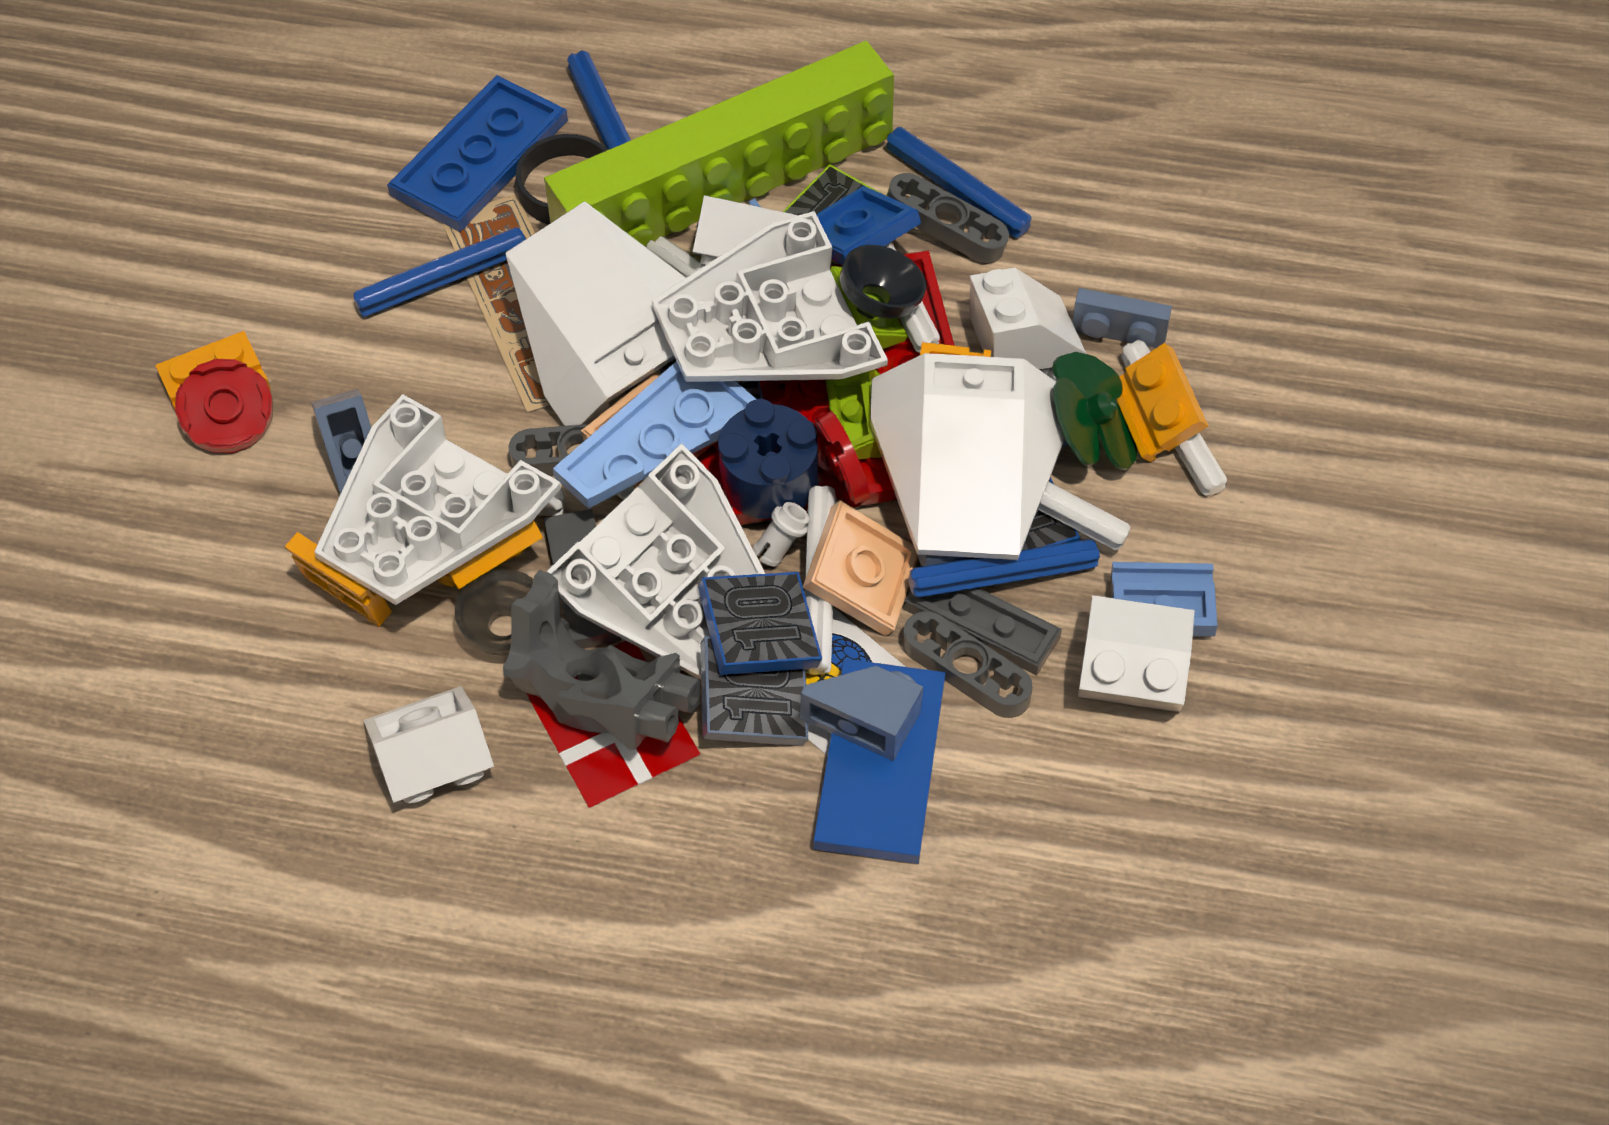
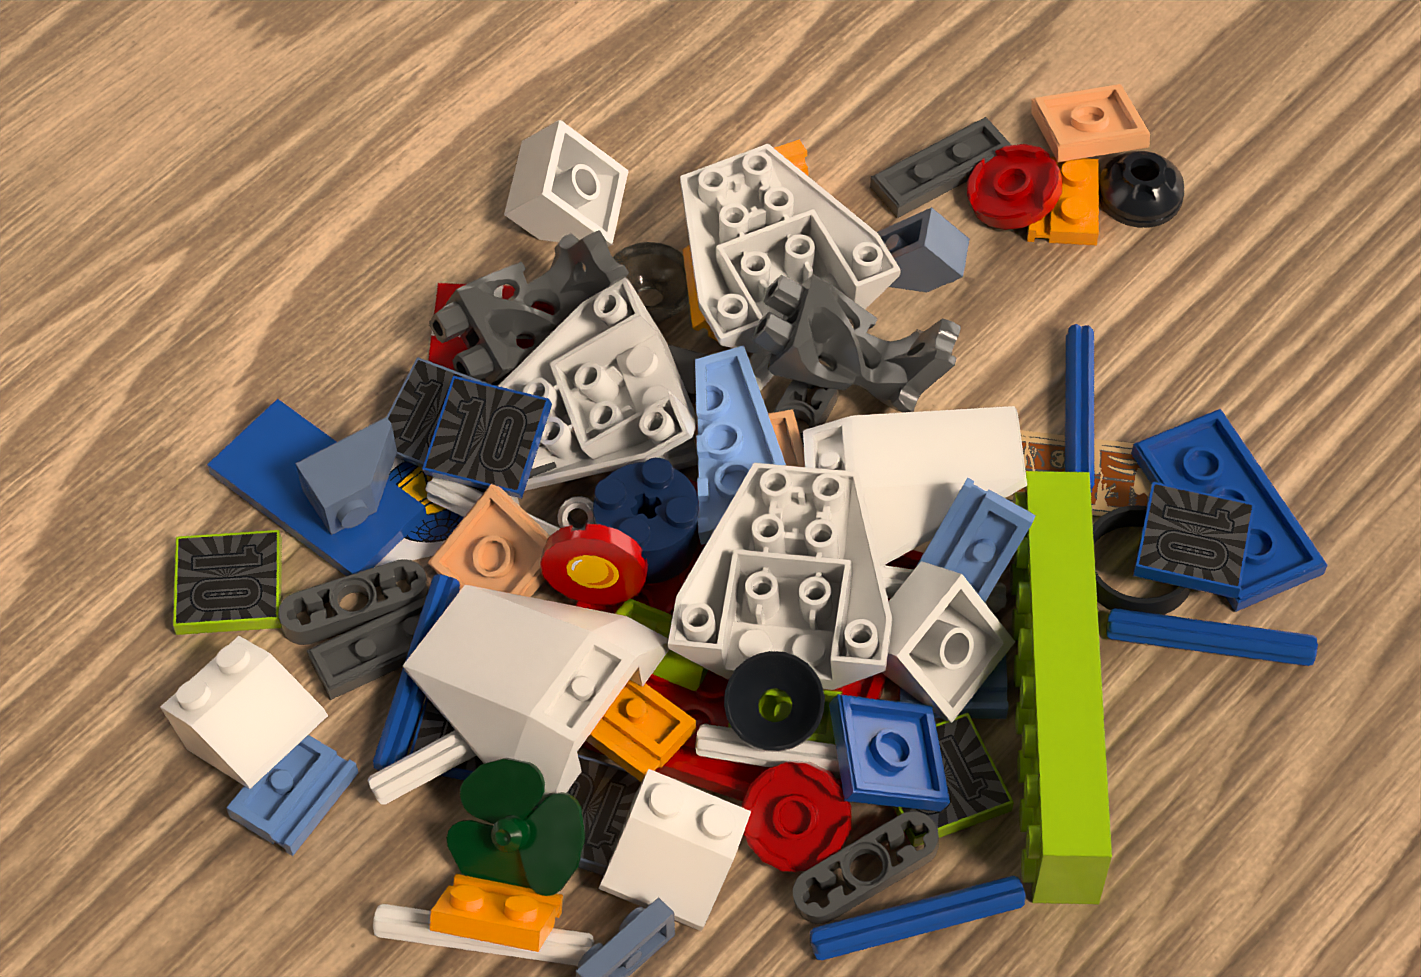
camera: 120 degrees right, 0 degrees up
(115, 385) = (1090, 123): none -> light nougat tile
(160, 342) = (1138, 201): none -> black piece
(222, 479) = (937, 167): none -> dark grey tile
(502, 414) = (819, 327): none -> dark grey hips
(535, 138) = (1194, 540): none -> tile
(654, 221) = (978, 537): none -> medium blue plate
(944, 264) = (796, 816): none -> red tile
(1016, 771) = (227, 582): none -> tile

